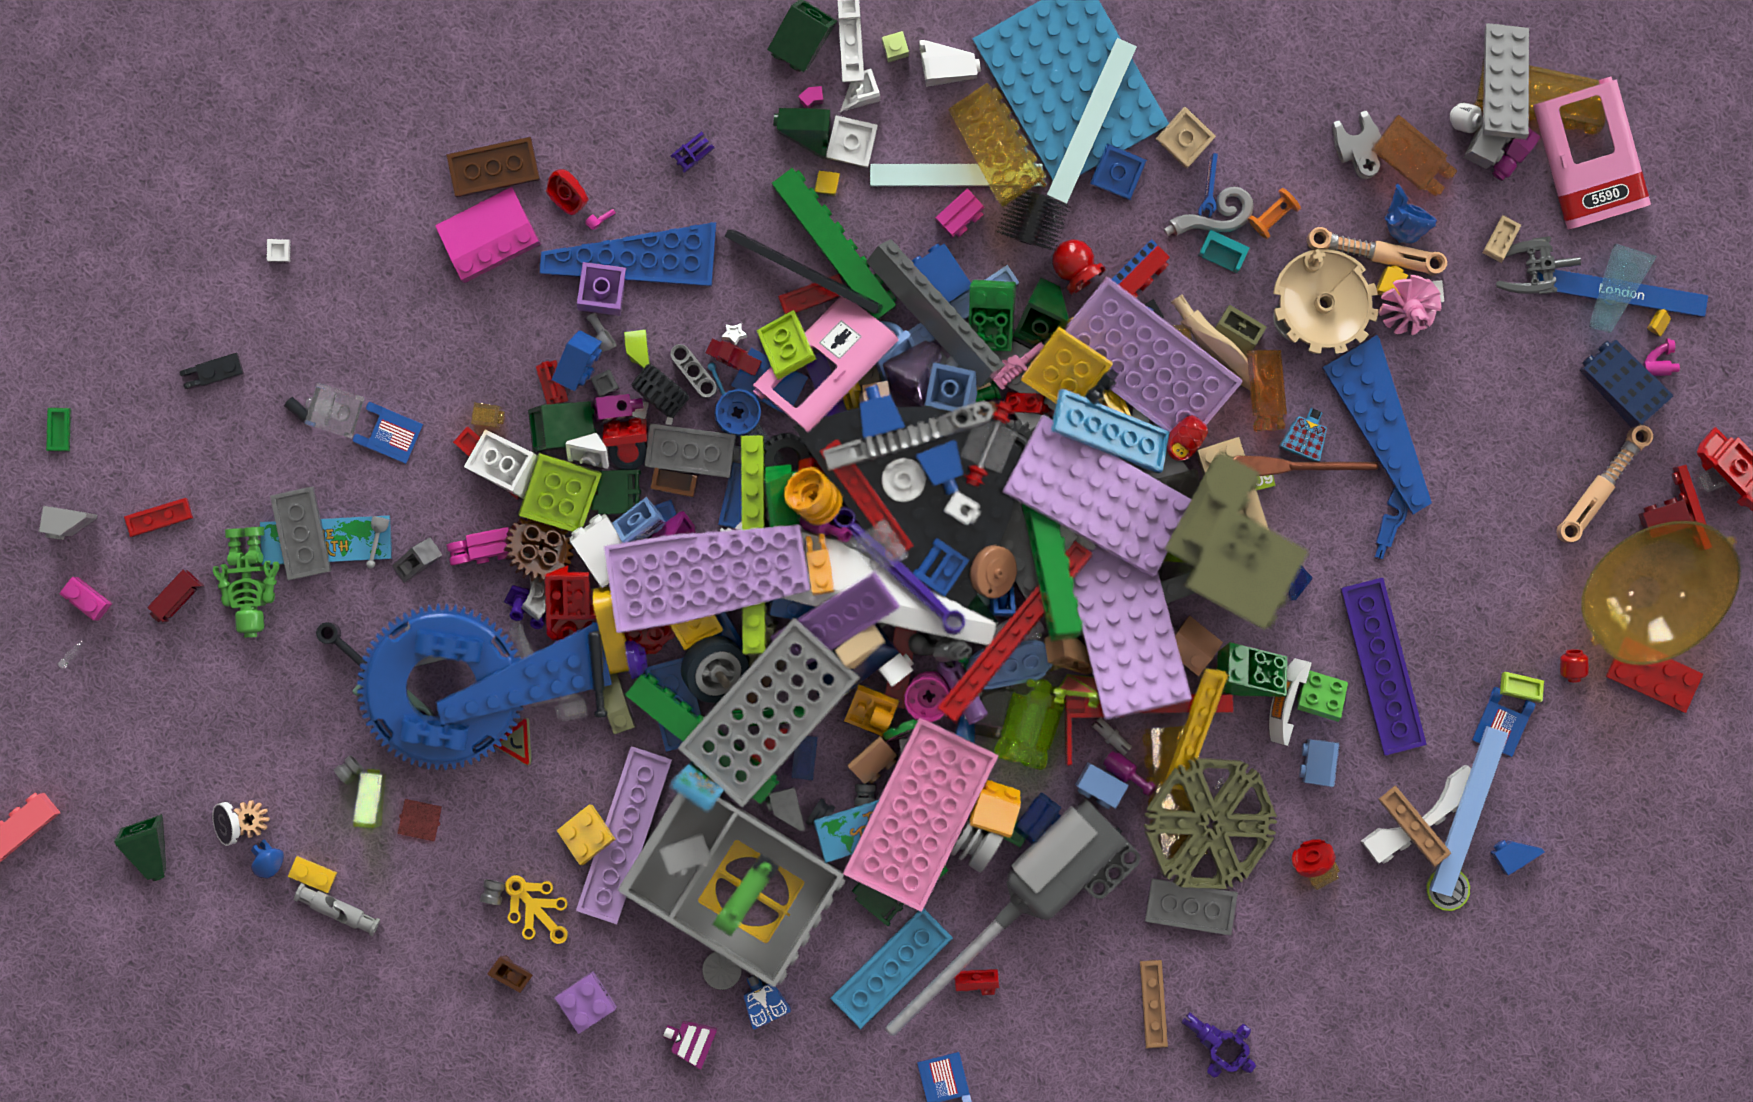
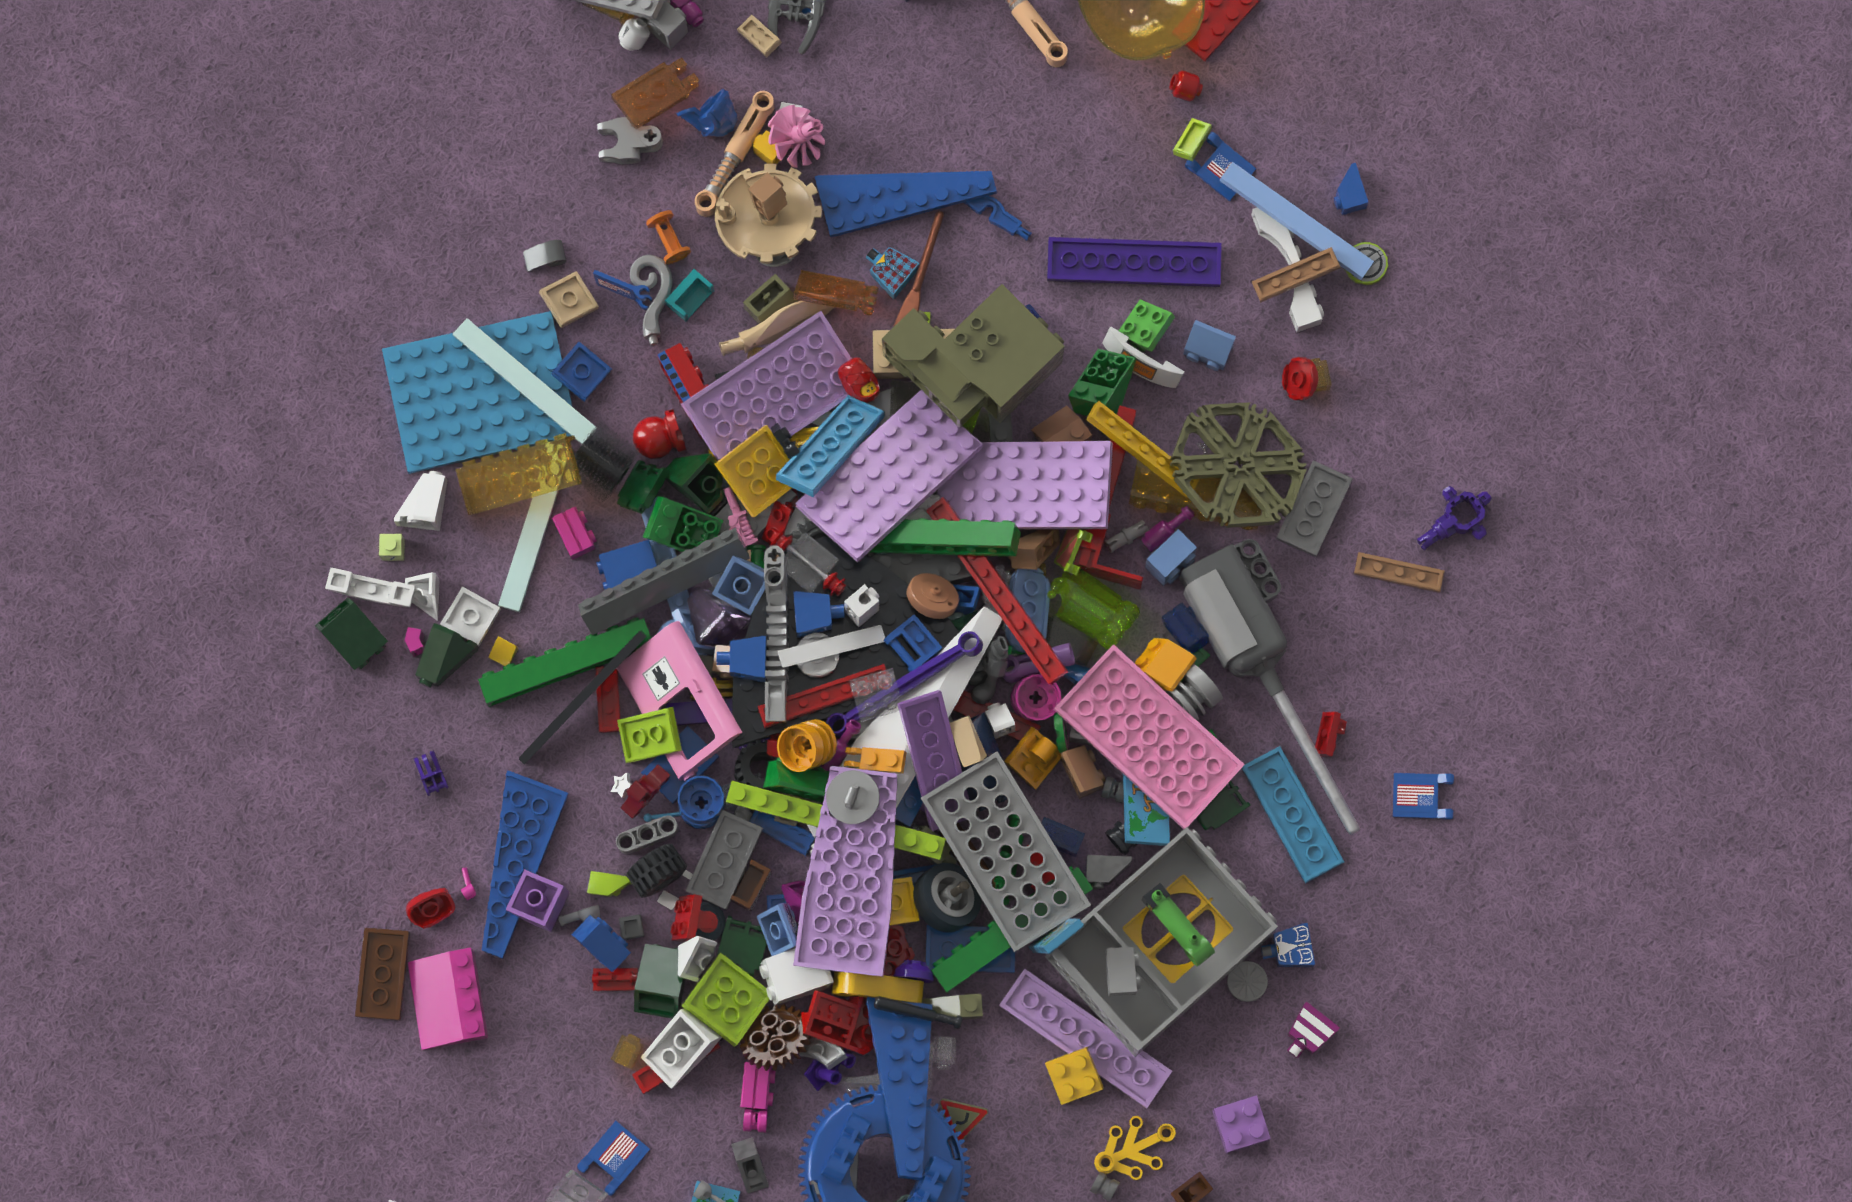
camera: 70 degrees left, 10 degrees down
(606, 409) = (659, 928): magenta torso -> none
(774, 555) = (852, 797): none -> light grey shield
(914, 491) = (831, 646): none -> white sticker
(1022, 263) = (641, 486): none -> dark green plate
(1222, 100) = (547, 253): none -> panel
(1340, 297) = (768, 195): none -> medium nougat brick

